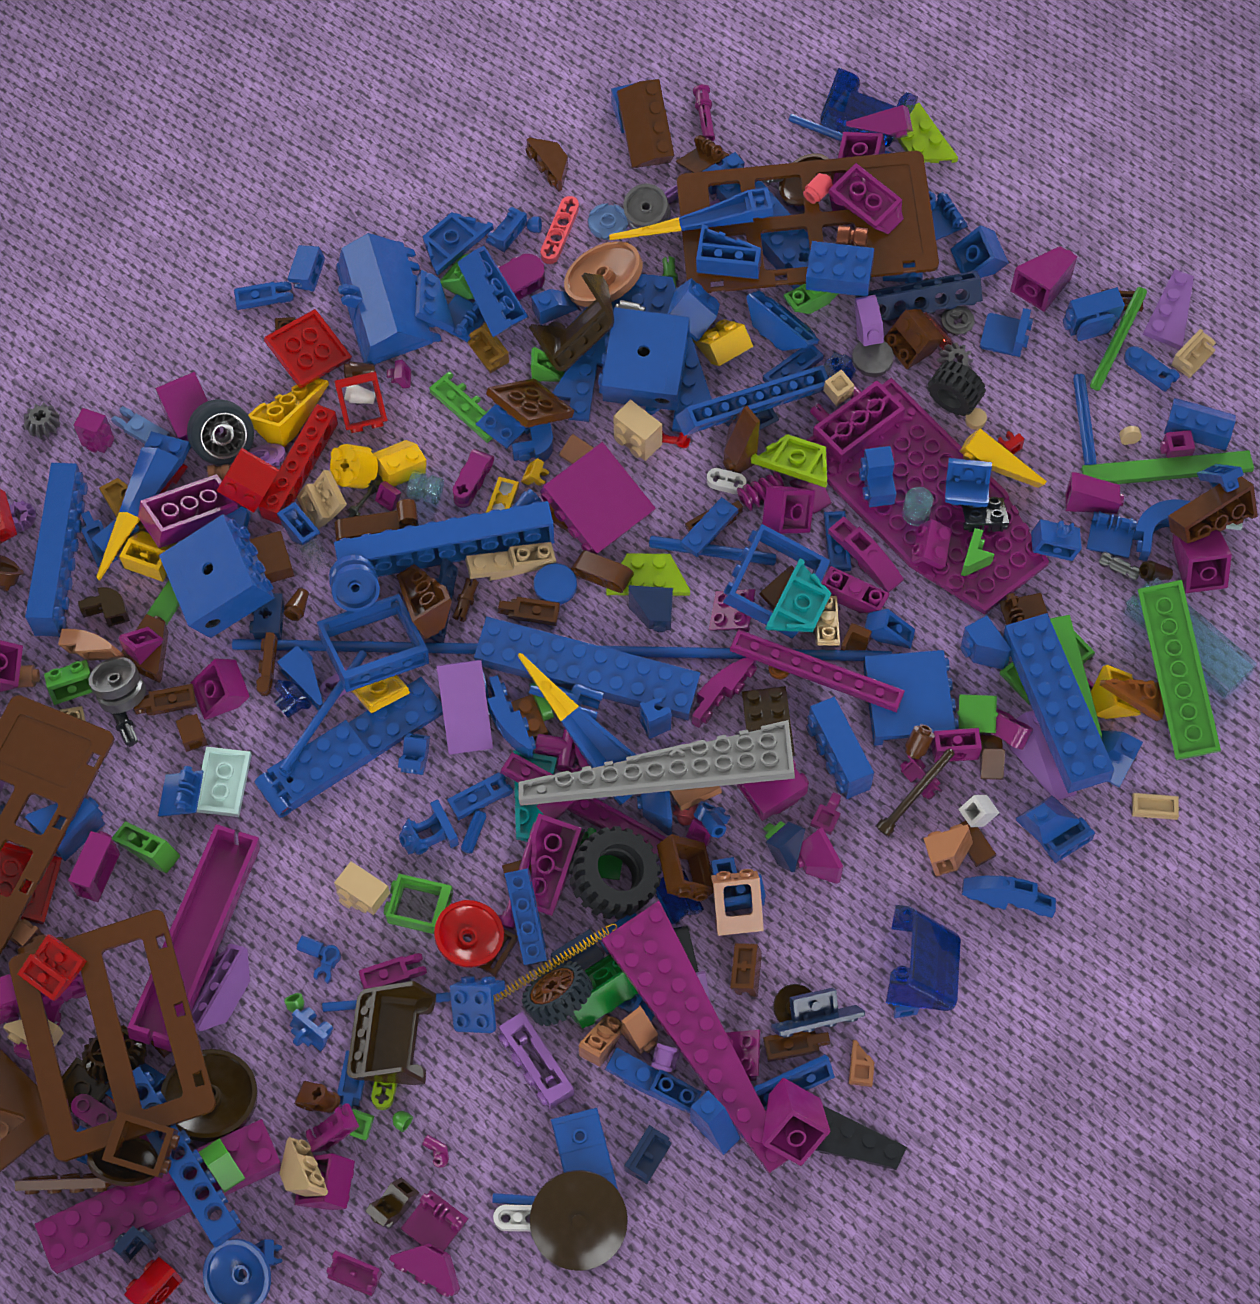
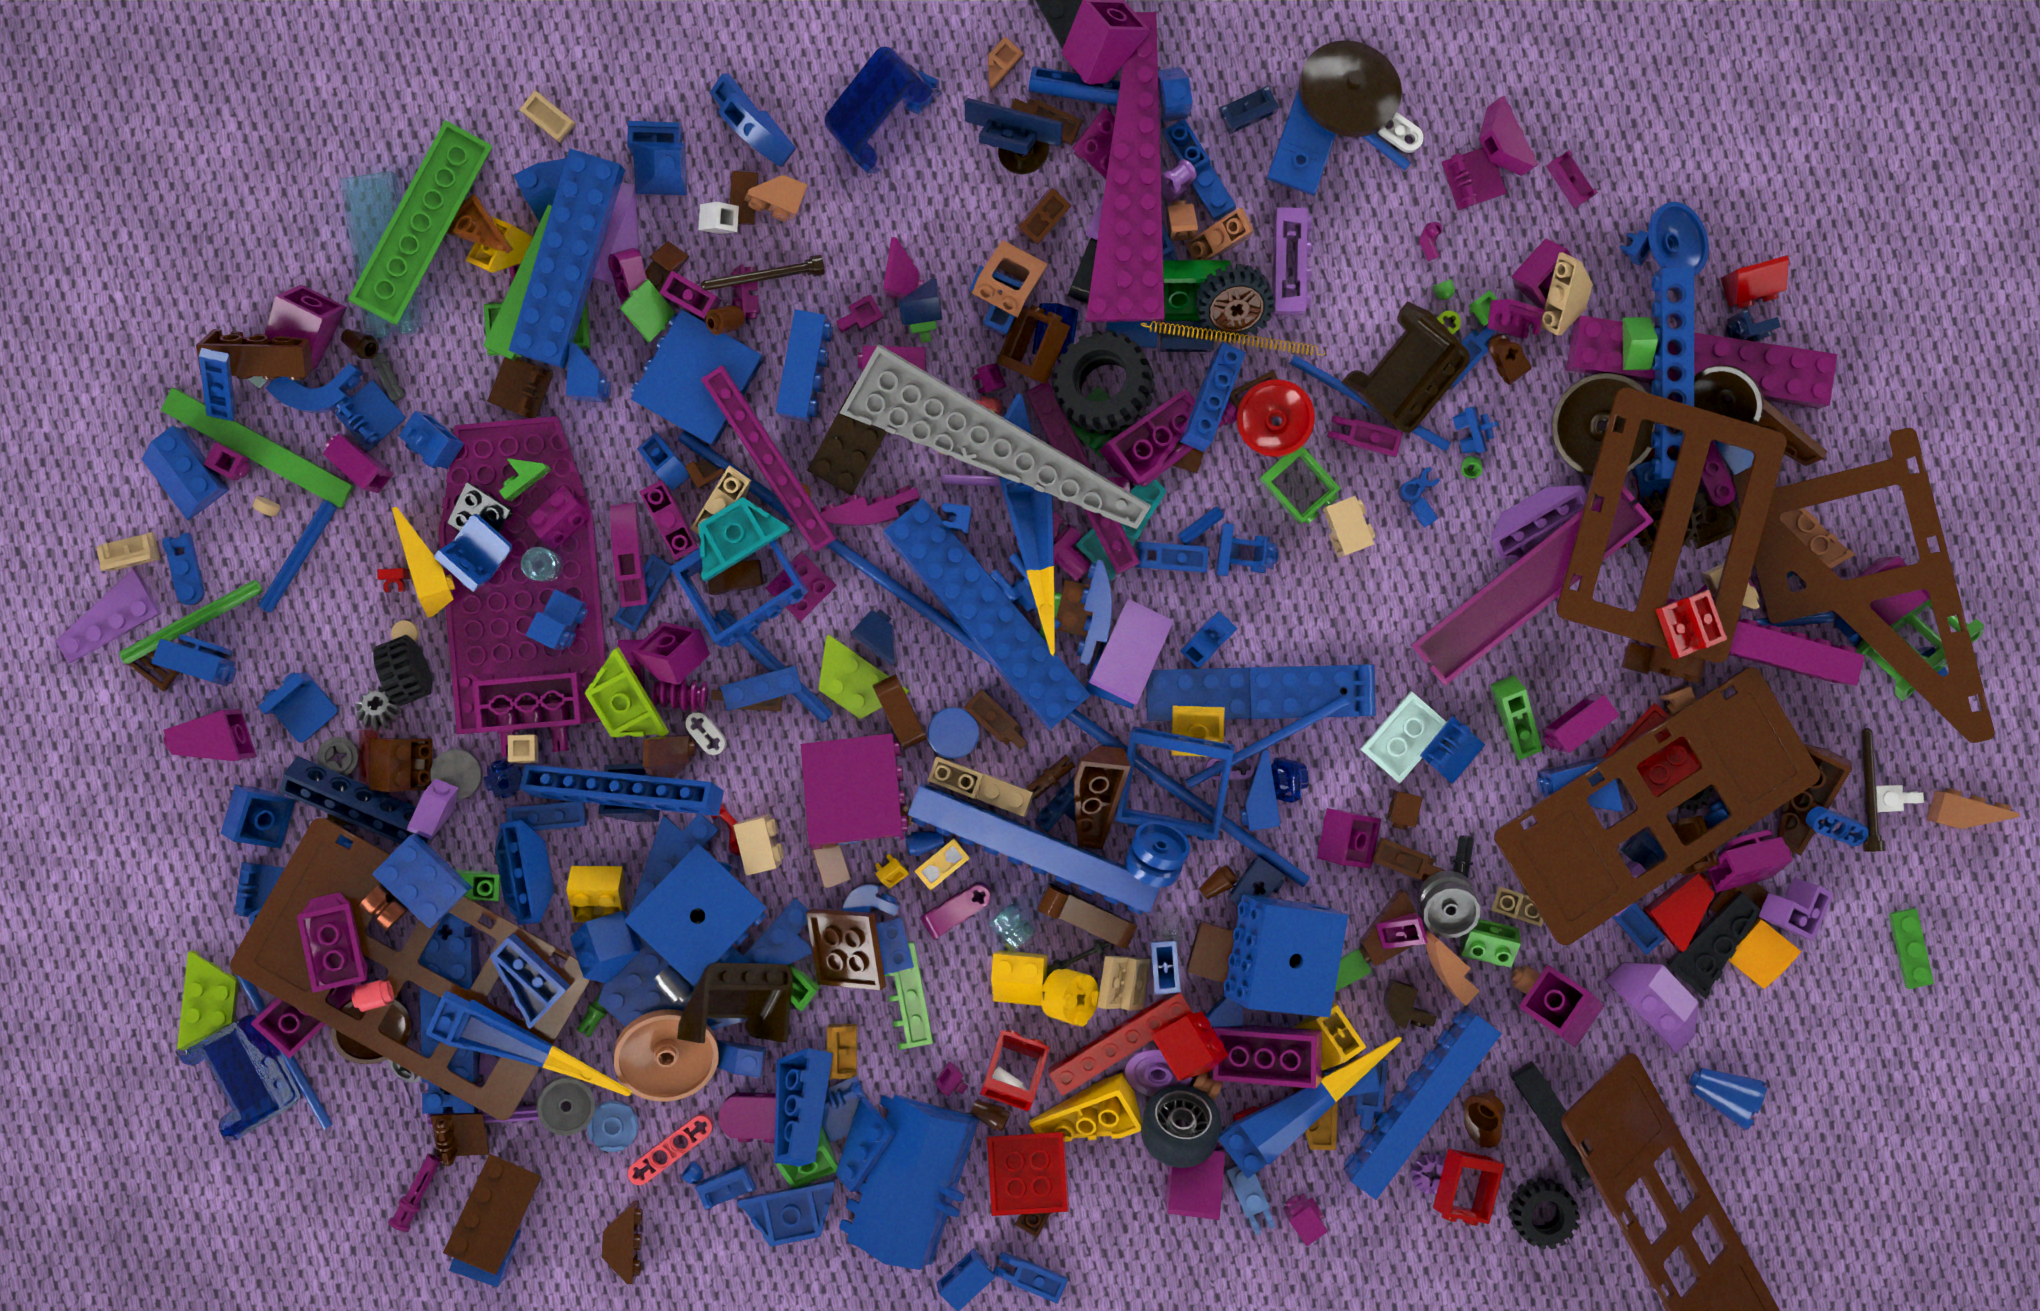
camera: 140 degrees left, 25 degrees up
(41, 420) = (1348, 1263): flat silver gear -> none
(118, 1136) = (1693, 407): reddish brown window -> none
(267, 665) = (1289, 831): reddish brown hinge -> none
(387, 496) = (1054, 943): magenta tile -> none
(393, 1203) = (1503, 215): dark brown brick -> none
(474, 1004) = (1311, 352): blue bracket -> none
(712, 818) = (975, 385): blue bar -> none
(889, 122) = (237, 1034): magenta slope -> none

